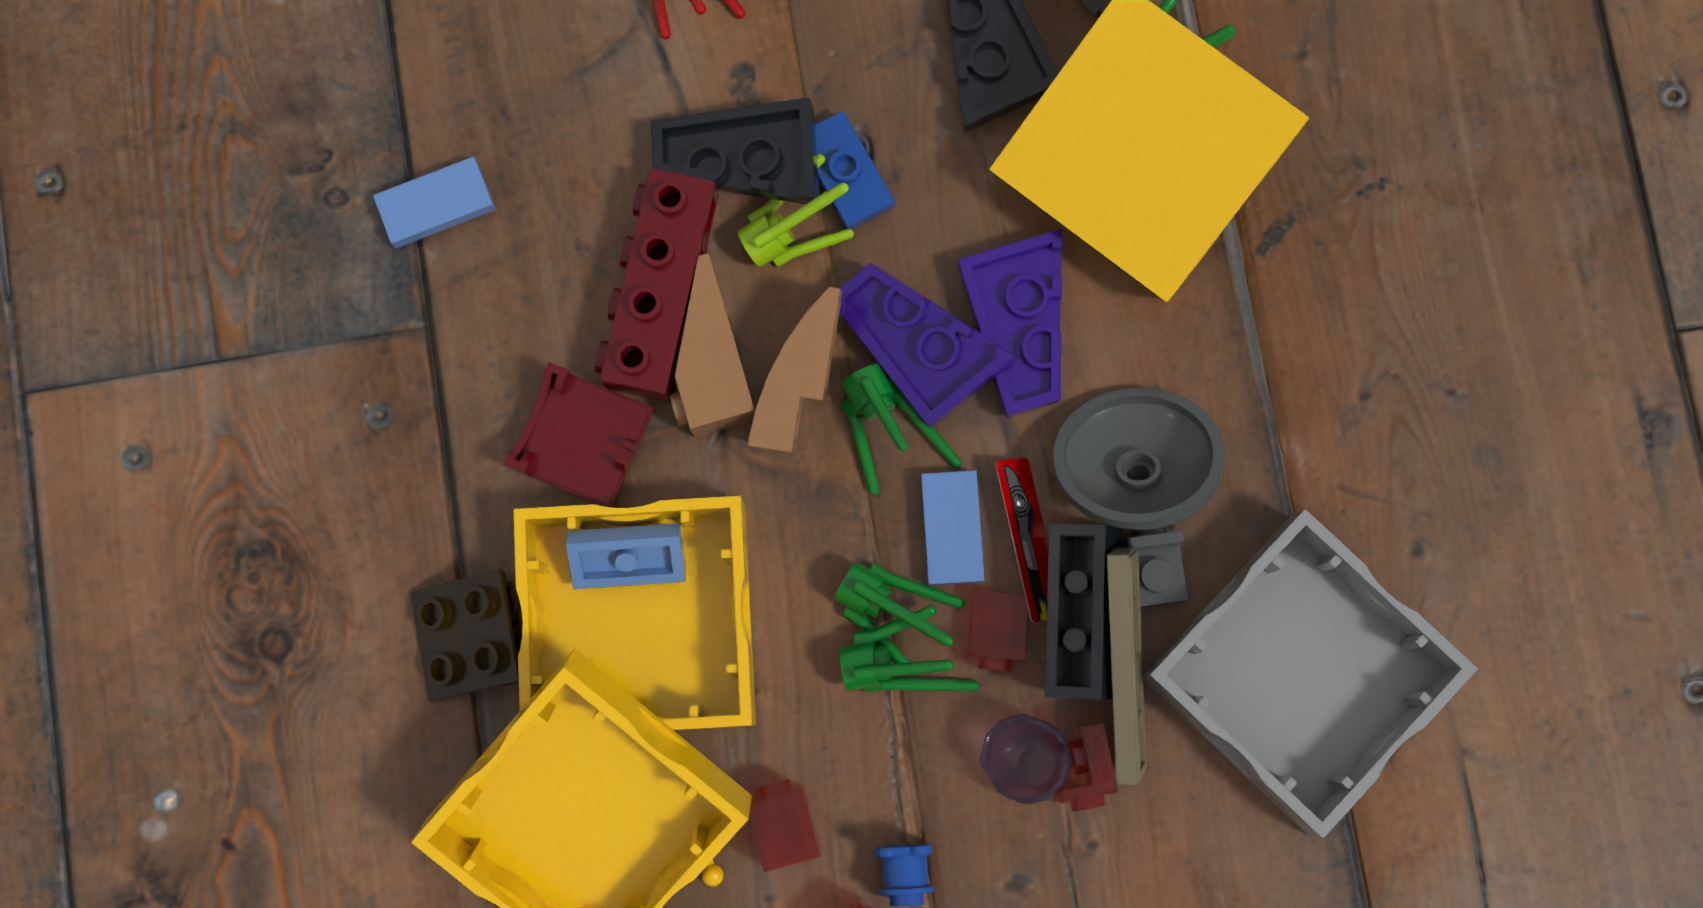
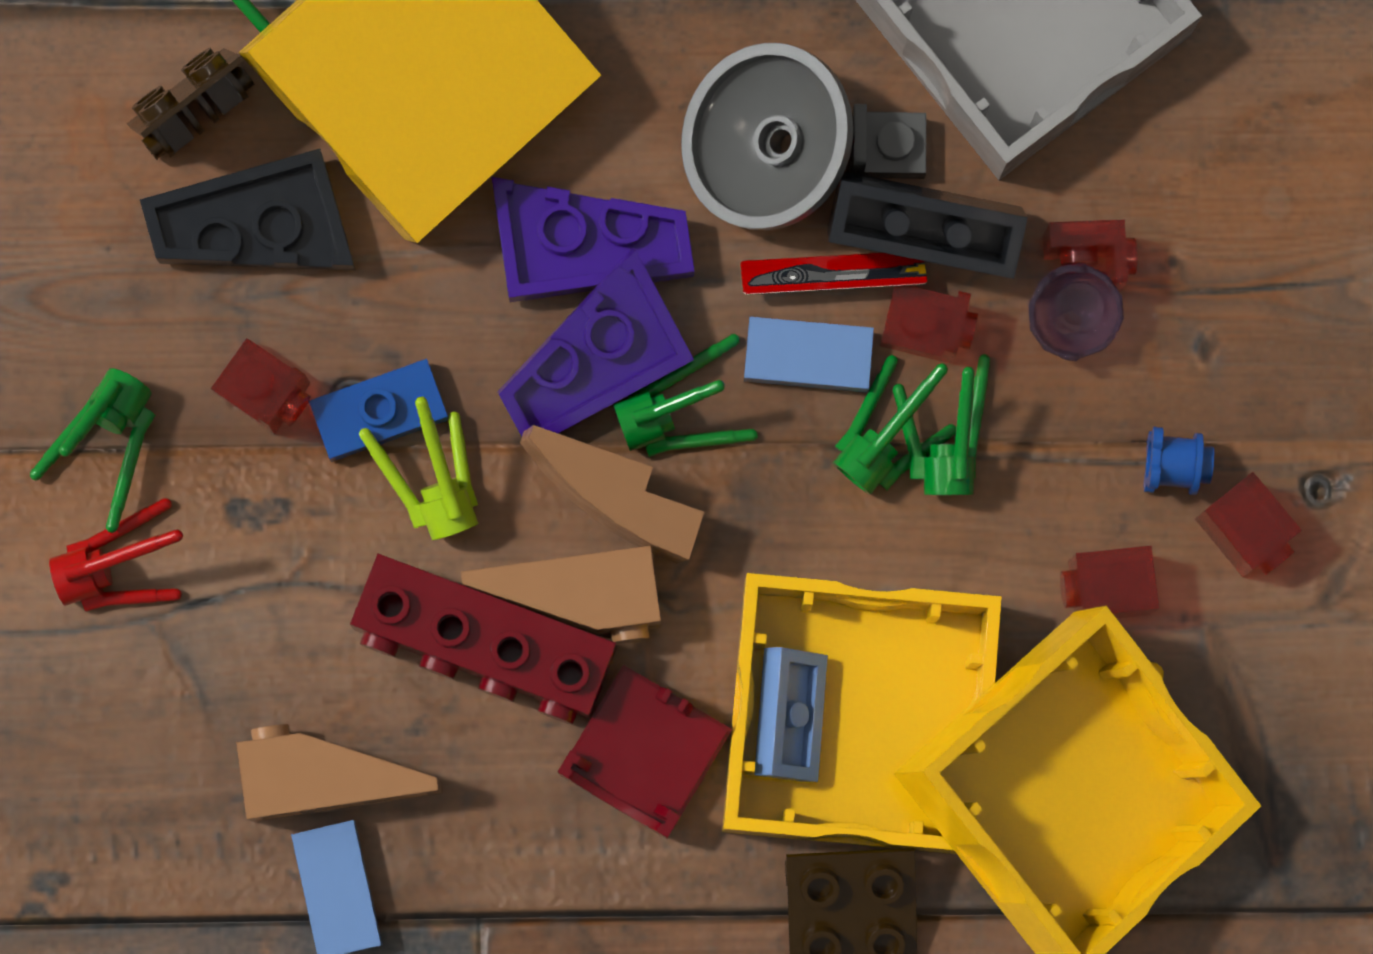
camera: 90 degrees left, 0 degrees up
(525, 168) = (306, 775): none -> medium nougat slope
(744, 149) = (341, 519): black wing -> none
(849, 72) = (263, 387): none -> clear red bracket
(1127, 665) = (990, 186): dark tan tile -> none

